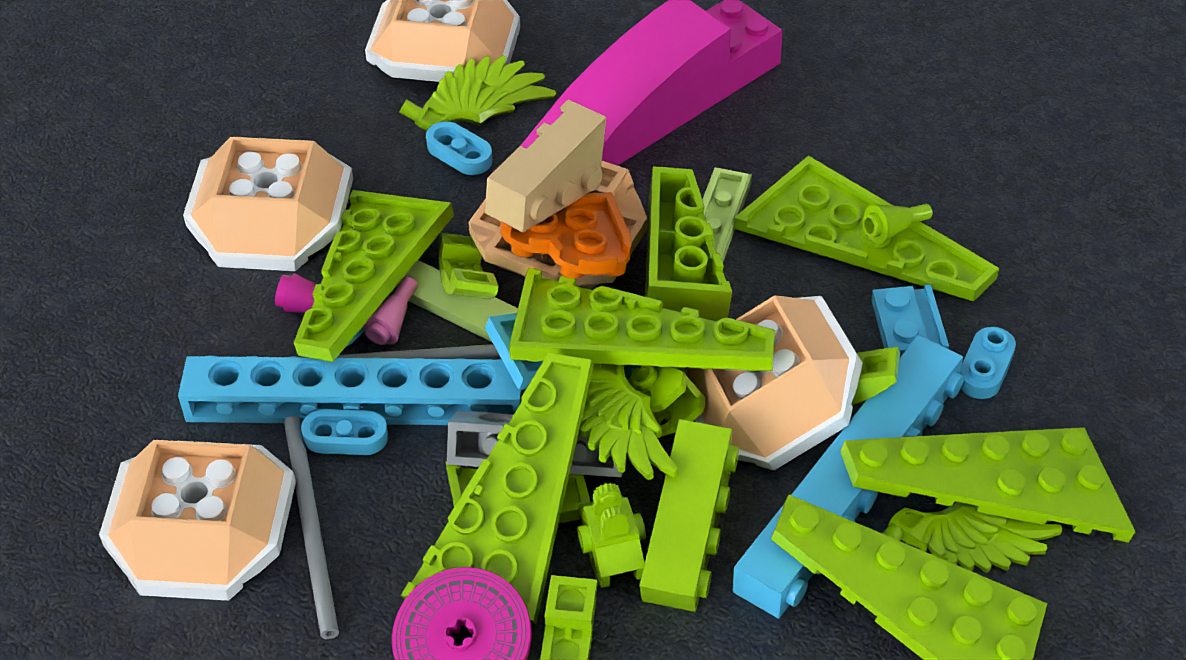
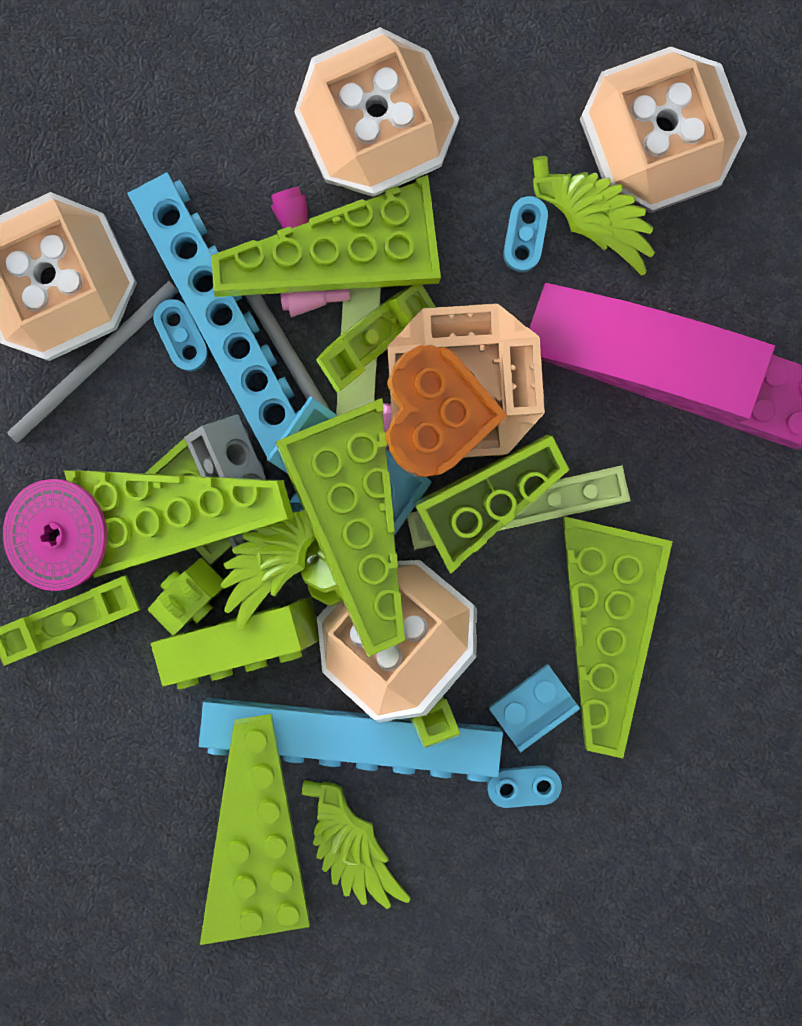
camera: 60 degrees right, 40 degrees up
(551, 171) = (469, 367): tan wedge -> none
(885, 221) = (617, 650): lime cone -> none
(1005, 474) = (409, 862): lime wing -> none

